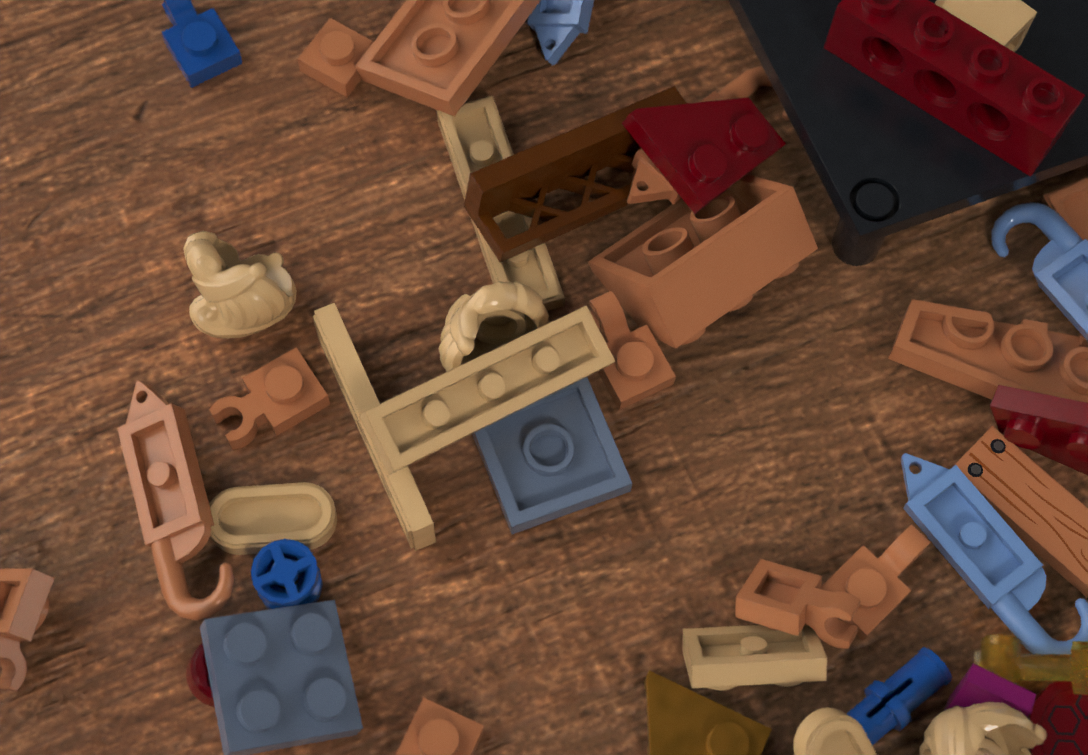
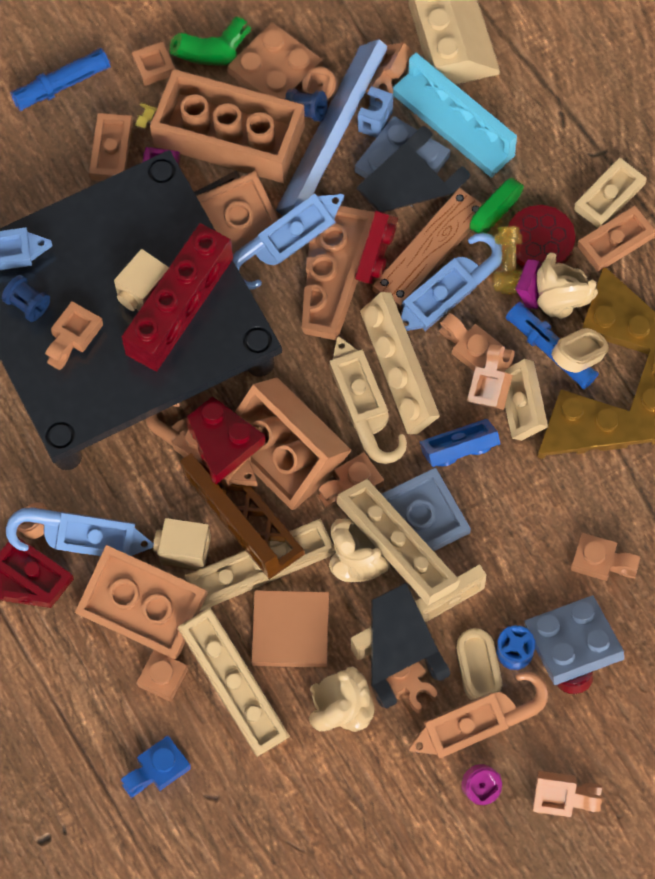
camera: 90 degrees left, 0 degrees up
(62, 491) = (481, 784): none -> magenta tile
(301, 139) = (233, 682): none -> tan tile
(316, 377) = (400, 641): none -> black flag
(383, 238) = (290, 629): none -> nougat tile
(540, 93) = (183, 544): none -> tan brick
(677, 533) = (460, 442): none -> blue plate
(773, 385) = (363, 400): none -> tan plate
(821, 452) = (399, 363): none -> tan plate

